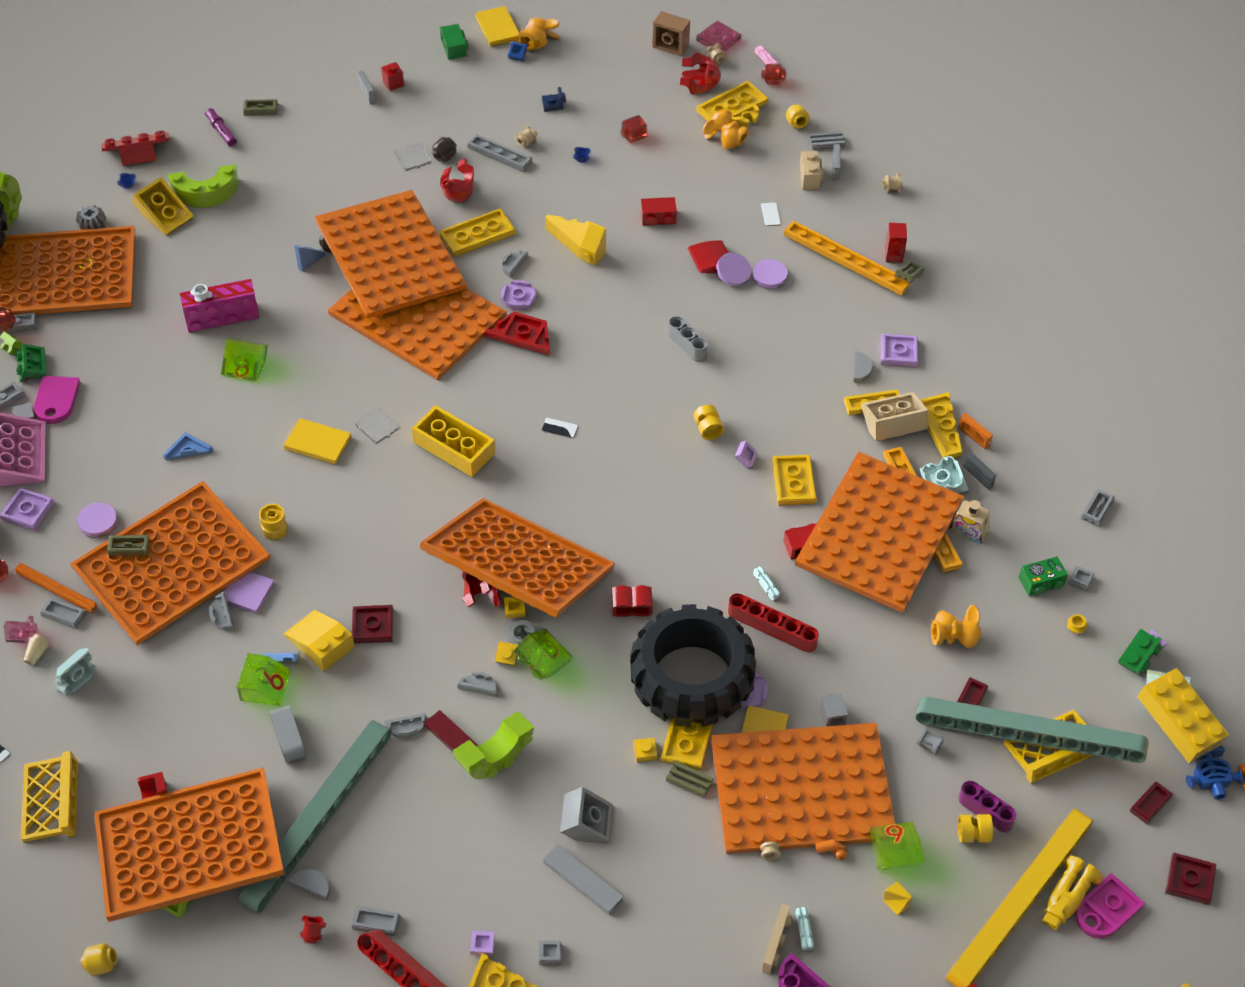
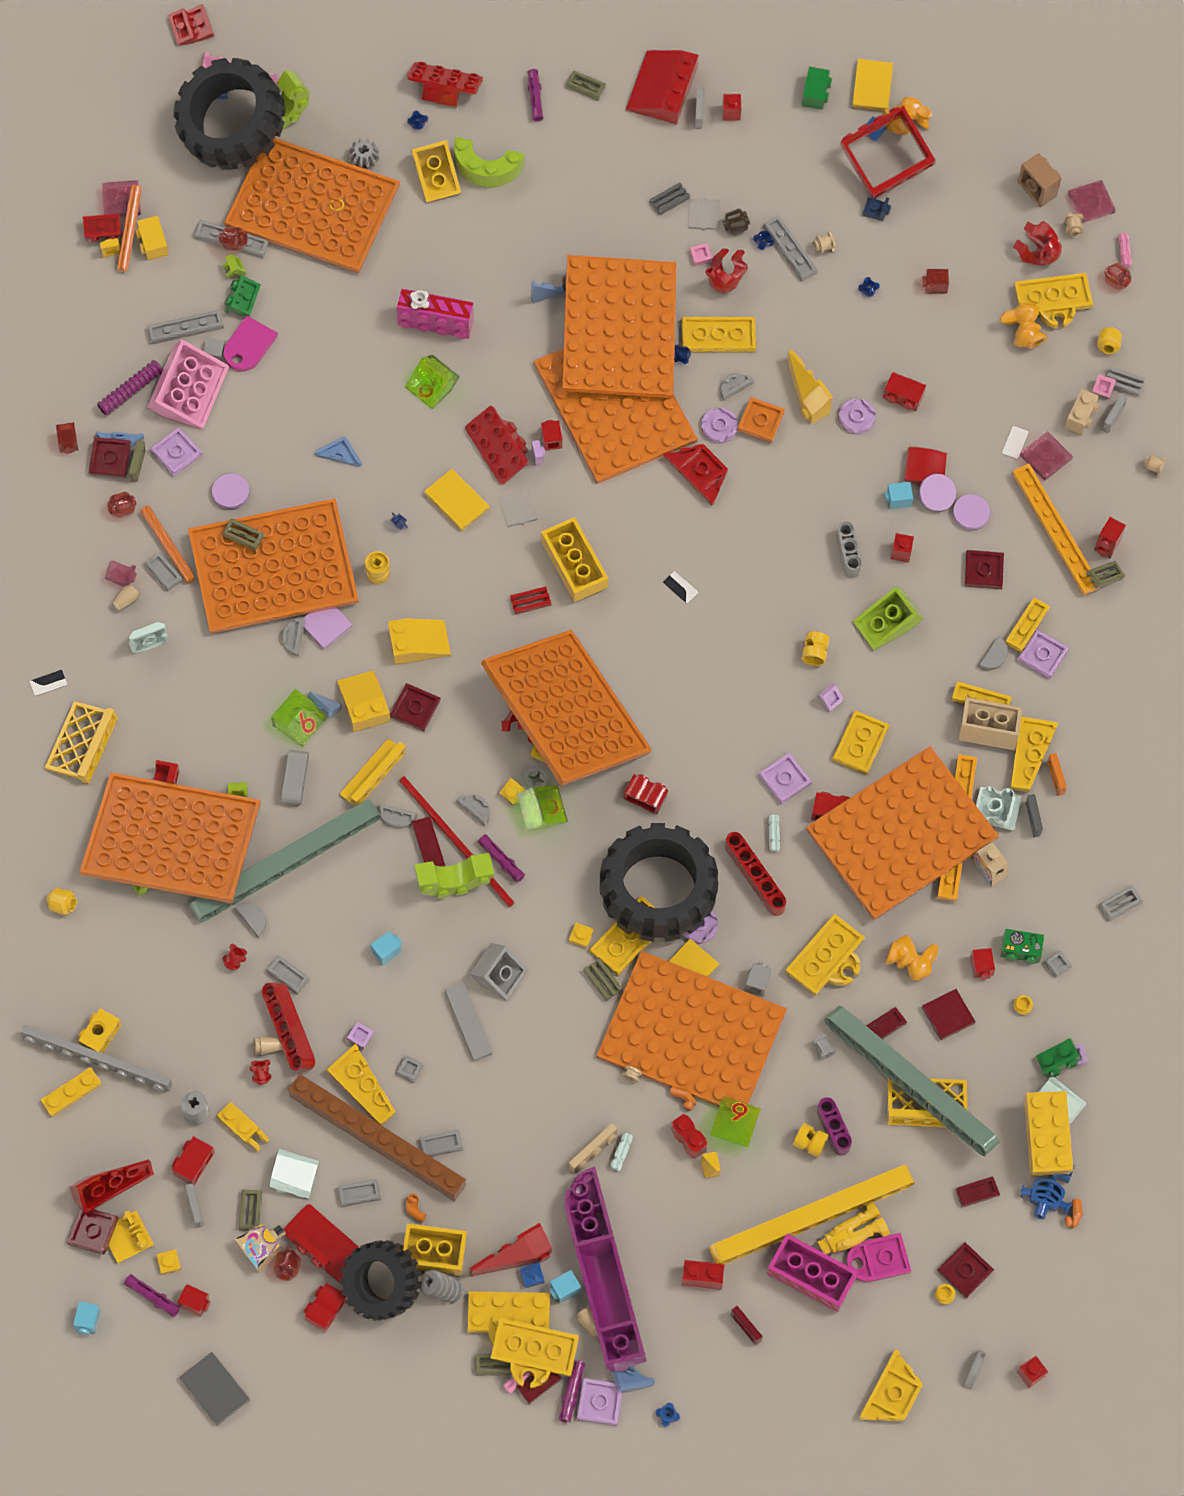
camera: 25 degrees right, 15 degrees up
(235, 768) = (238, 789): none -> lime tile
(272, 477) = (398, 520): none -> clear blue plate
(326, 82) = (663, 84): none -> red slope
(331, 382) = (498, 444): none -> red bracket
(343, 566) = (418, 639): none -> yellow slope
(362, 696) = (373, 772): none -> yellow panel
(371, 375) = (538, 453): none -> lavender plate
(375, 155) = (656, 203): none -> dark grey tile
(376, 357) = (551, 435): none -> red brick
(427, 183) = (701, 254): none -> bright pink tile
(429, 489) = (545, 595): none -> red tile
(459, 255) = (682, 354): none -> clear blue plate
(463, 847) = (386, 947): none -> medium azure brick
(470, 718) = (451, 835): none -> red piece
(474, 154) = (763, 235): none -> clear blue plate
(536, 718) = (507, 865): none -> magenta pin
(552, 34) = (903, 176): none -> red window
(552, 276) = (761, 419): none -> orange plate
(630, 244) = (857, 416): none -> lavender tile
(703, 284) = (899, 495): none -> medium azure brick
(731, 319) = (902, 547): none -> red brick
(747, 536) = (785, 778): none -> lavender tile
(755, 374) = (888, 618): none -> lime slope
(803, 210) = (1046, 456): none -> clear pink plate
(808, 310) = (984, 569): none -> dark red tile
(815, 145) = (1104, 385): none -> bright pink tile
(864, 882) = (692, 1139): none -> red brick
(872, 333) = (1027, 624): none -> yellow plate
(883, 663) = (827, 957): none -> yellow plate
(1019, 662) = (948, 1014): none -> dark red tile
(1020, 605) = (982, 963): none -> red brick
(1060, 950) = (812, 1273): none -> dark pink brick
(1189, 909) = (945, 1294): none -> yellow plate

